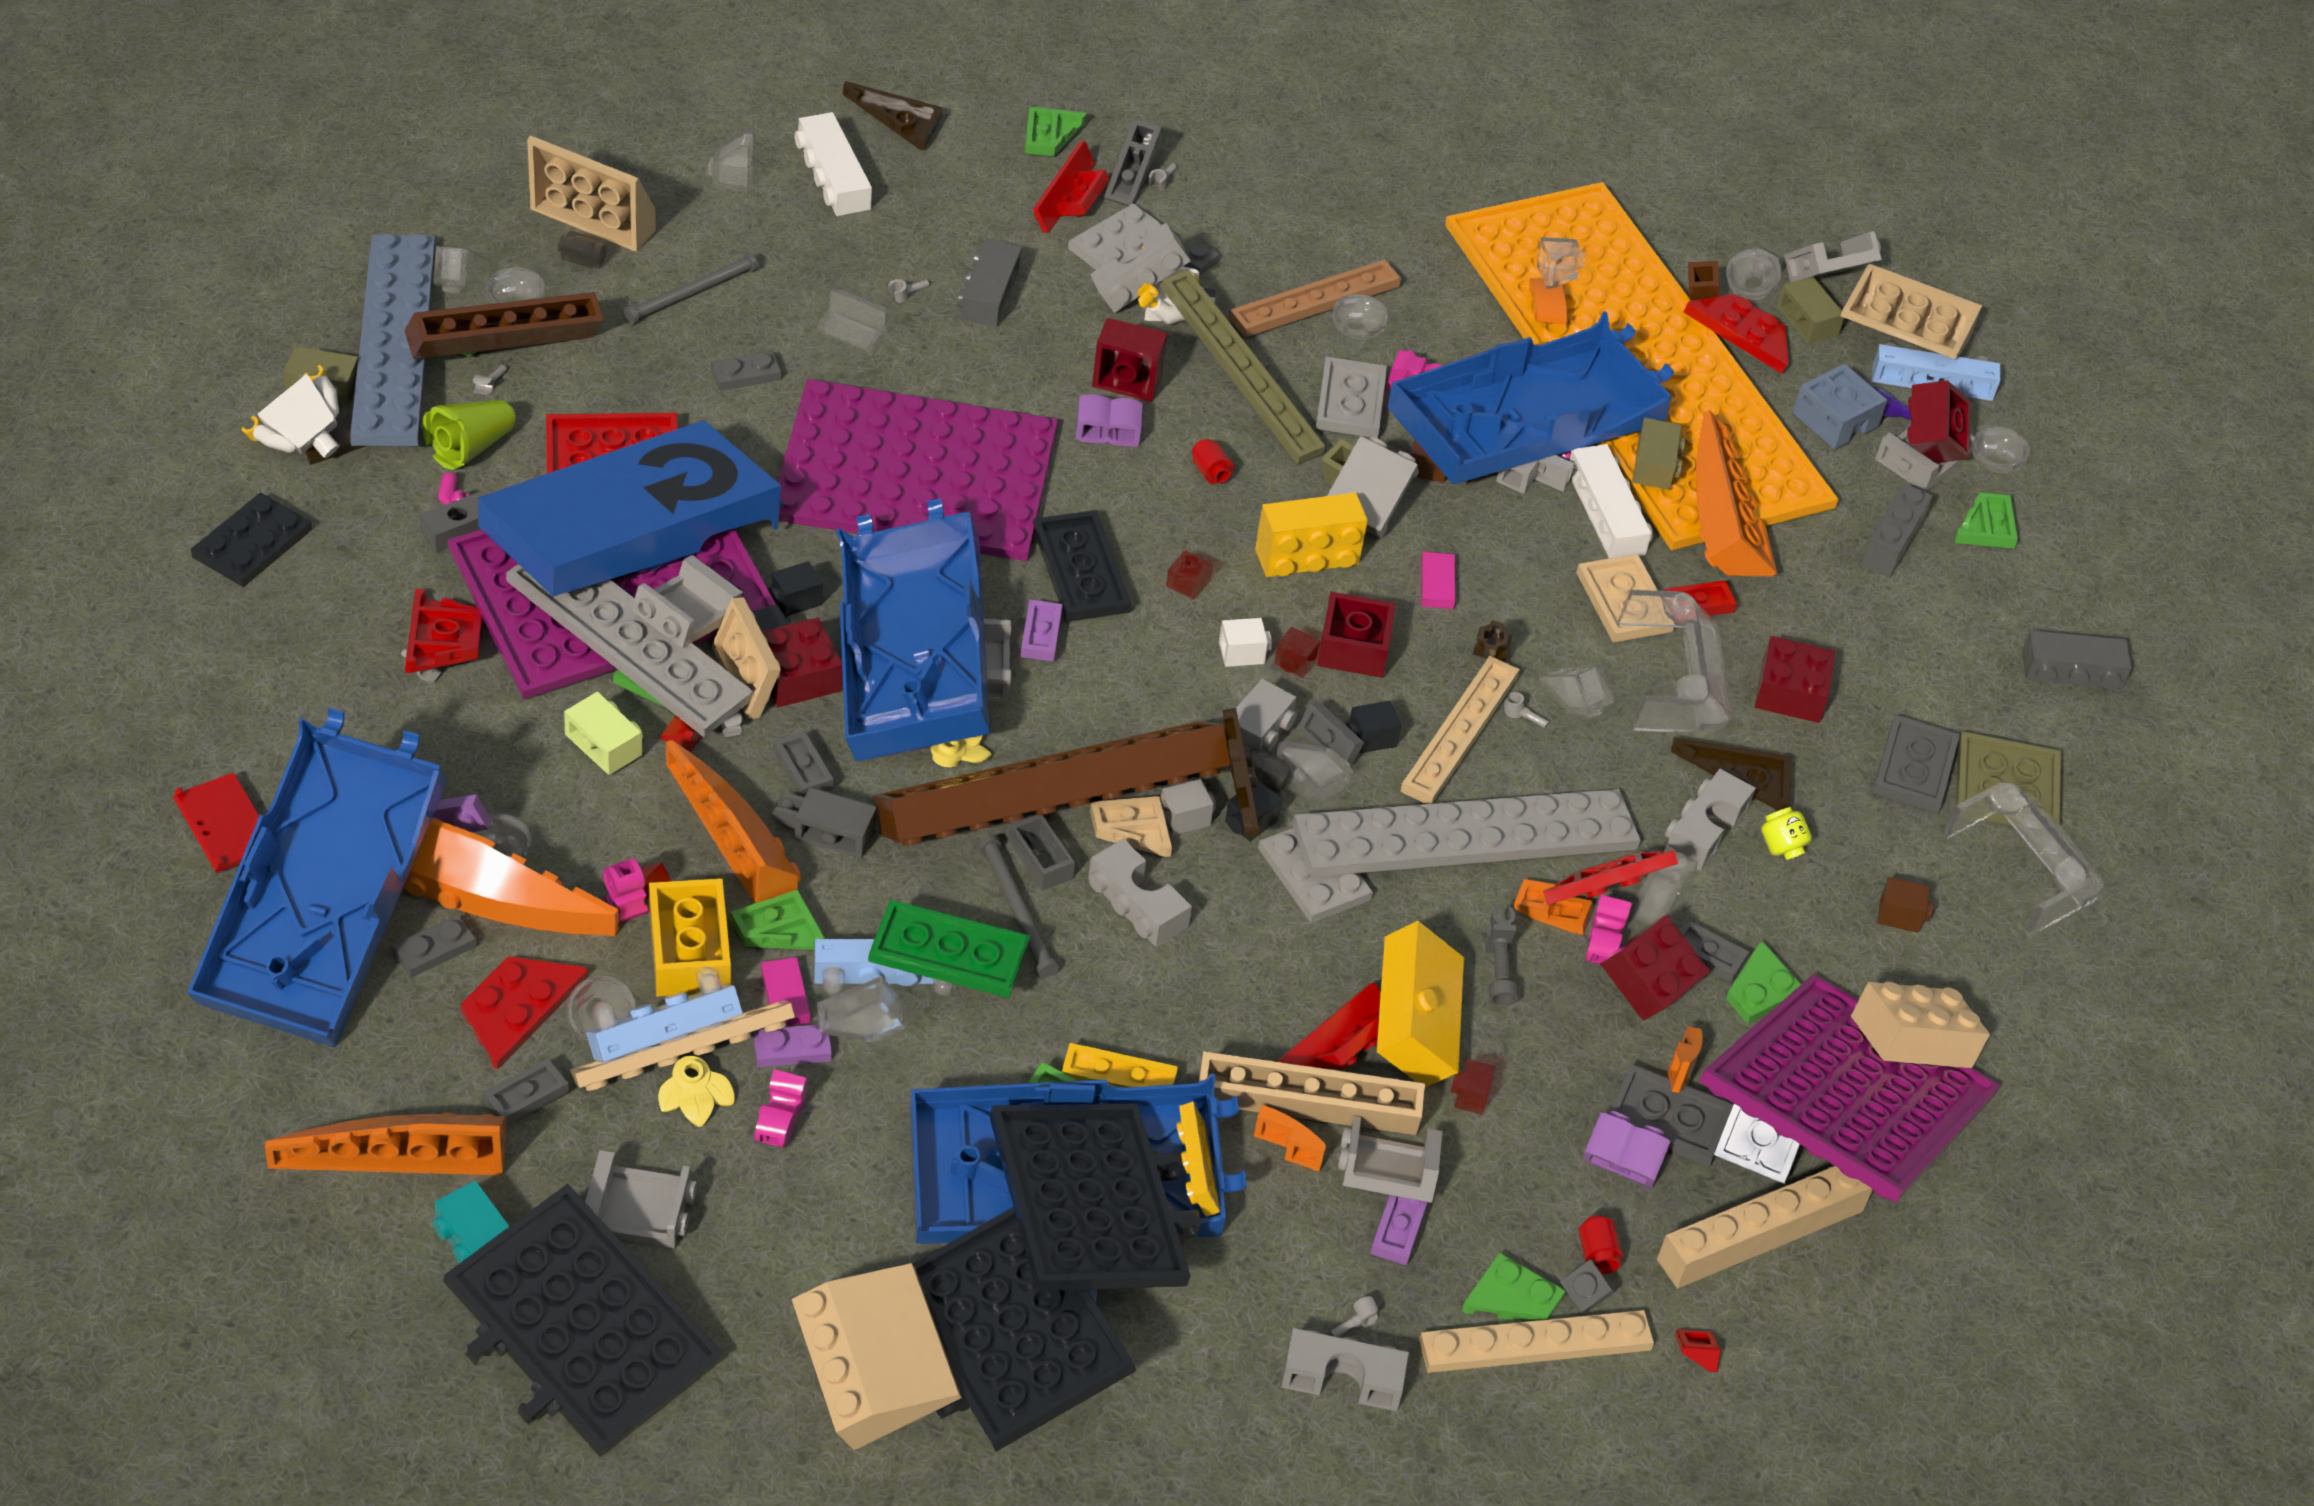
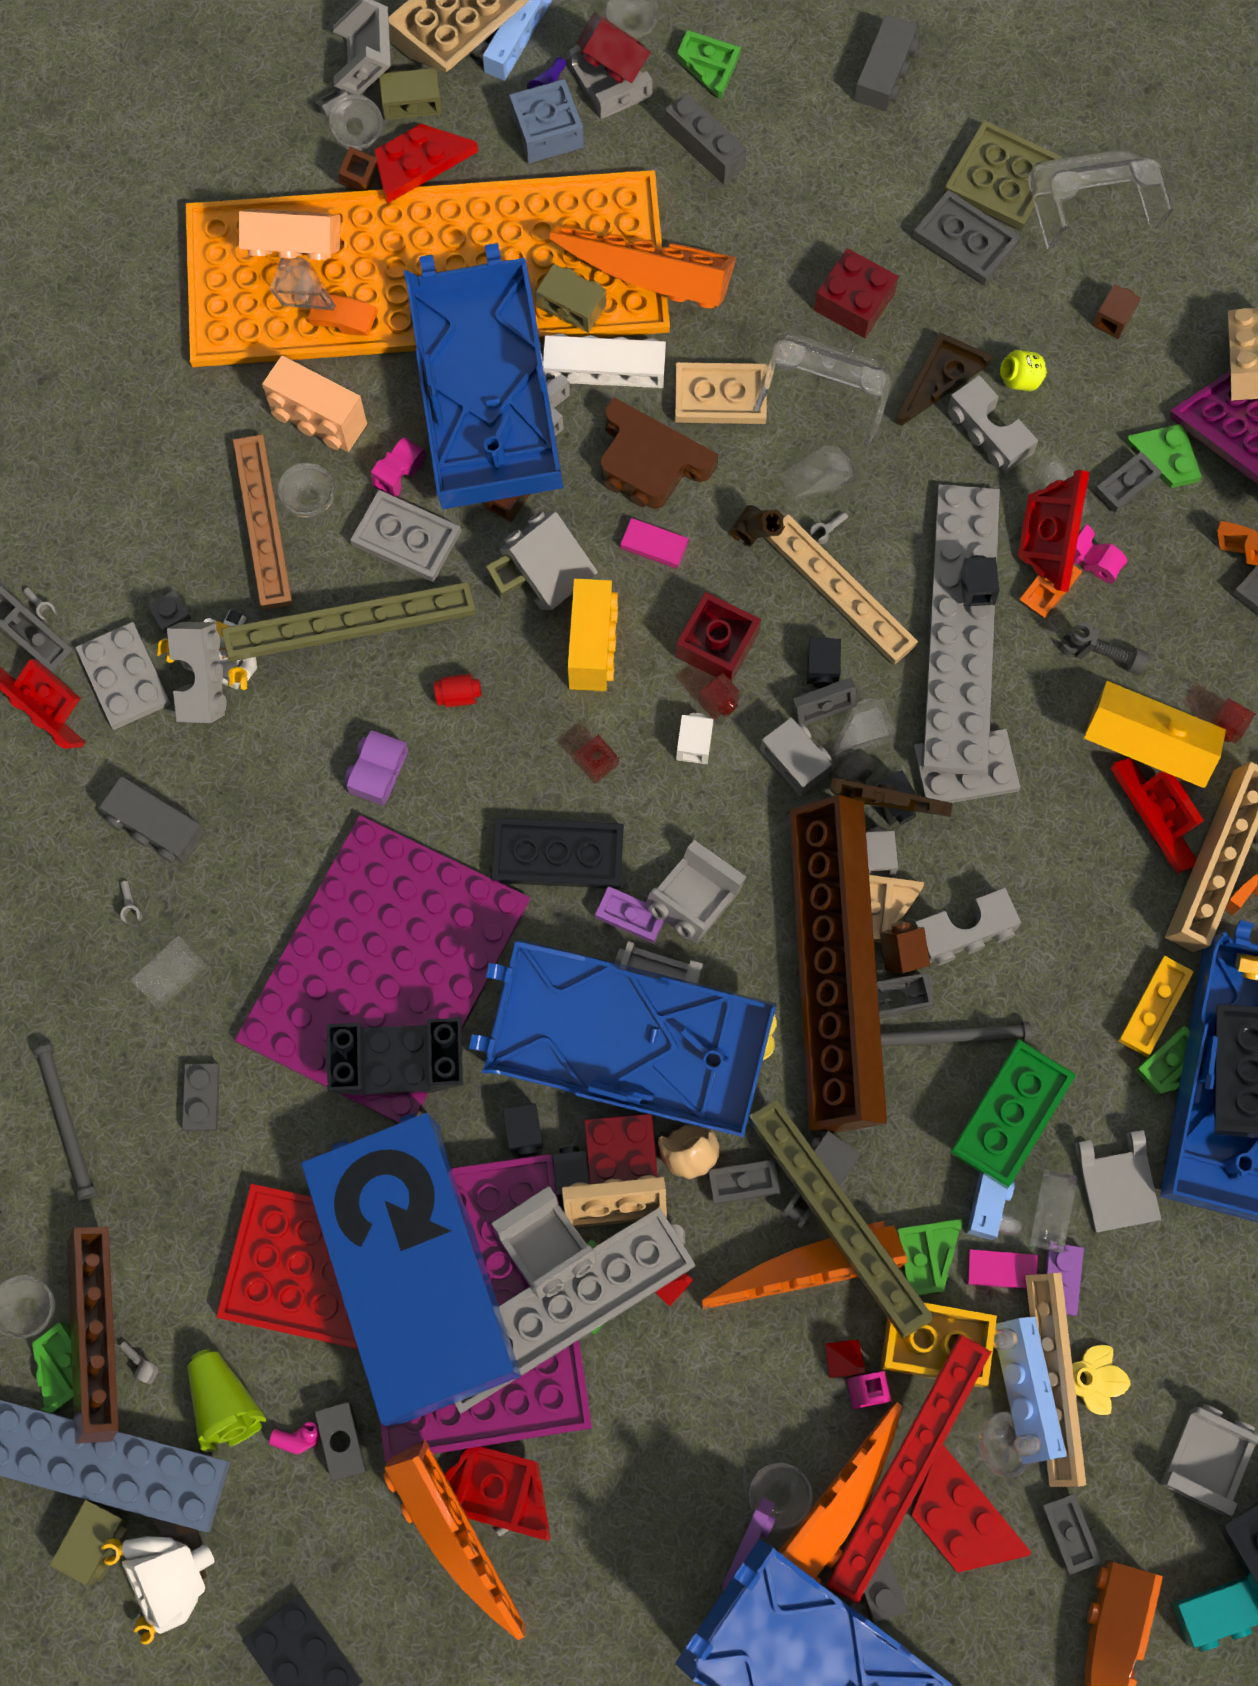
camera: 65 degrees left, 25 degrees up
(392, 598) = (448, 1532): none -> orange wedge
(554, 924) = (908, 1469): none -> red tile
(603, 733) = (667, 1361): yellowish green brick -> none
(778, 1117) = (1142, 1311): dark pink leg -> none
(784, 807) = (841, 1219): none -> olive plate
(815, 707) = (689, 1151): none -> tan hair
(822, 465) = (394, 1058): none -> black slope
(907, 1067) = (1119, 1185): none -> light grey flag
(1080, 668) = (695, 892): none -> light grey panel
(1092, 836) = (904, 947): none -> reddish brown brick
(1129, 359) = (313, 722): dark red brick -> none
(1444, 298) = (314, 404): none -> light nougat brick
(1517, 818) = (979, 581): none -> black brick
(1522, 553) = (650, 457): none -> reddish brown brick
(1604, 236) = (289, 233): none -> light nougat brick
(1655, 967) = (1152, 531): dark red brick -> none
(1711, 596) = (740, 333): red plate -> none

